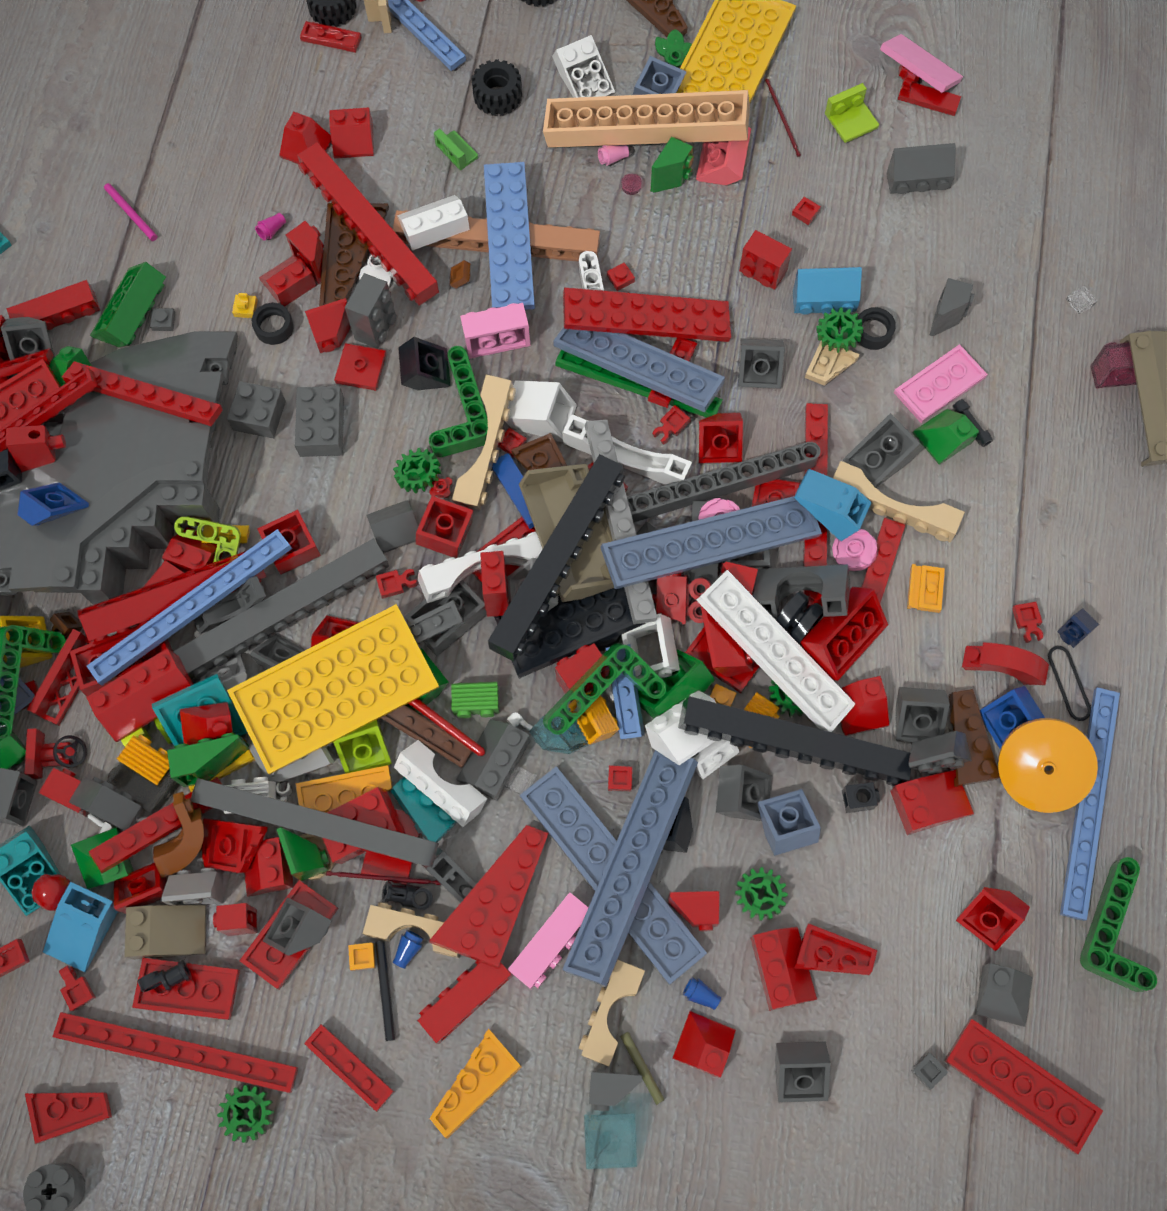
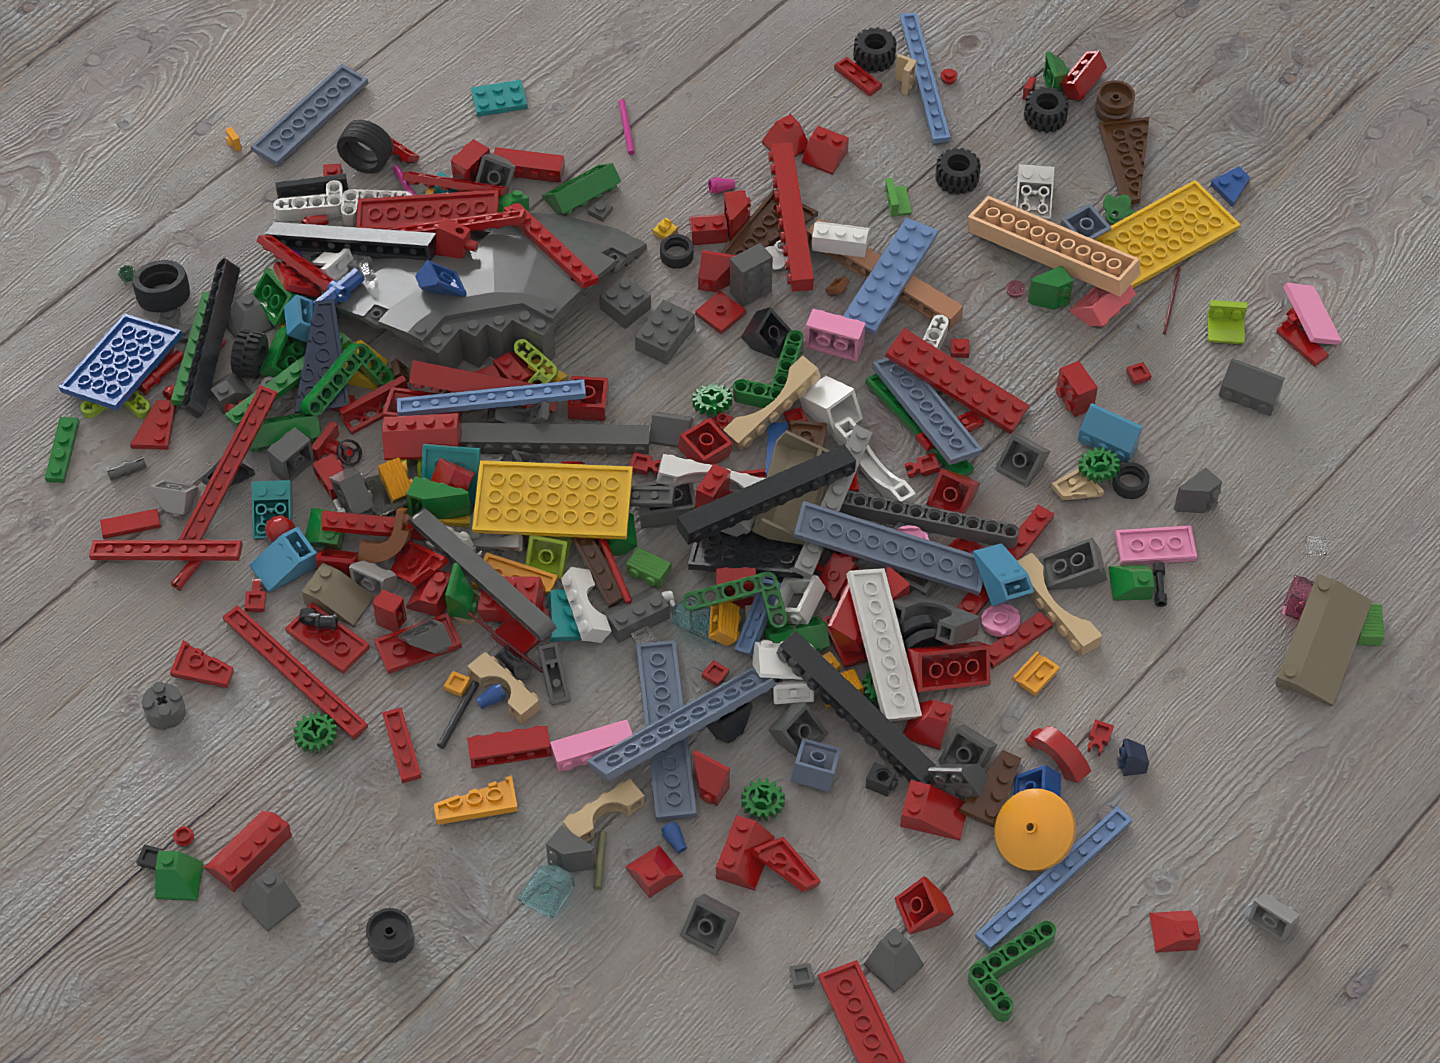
camera: 30 degrees right, 15 degrees down
(489, 912) = (564, 700): red wing -> none
(611, 153) = (1015, 260): bright pink cone -> none
(1061, 687) = (1093, 792): black piece -> none

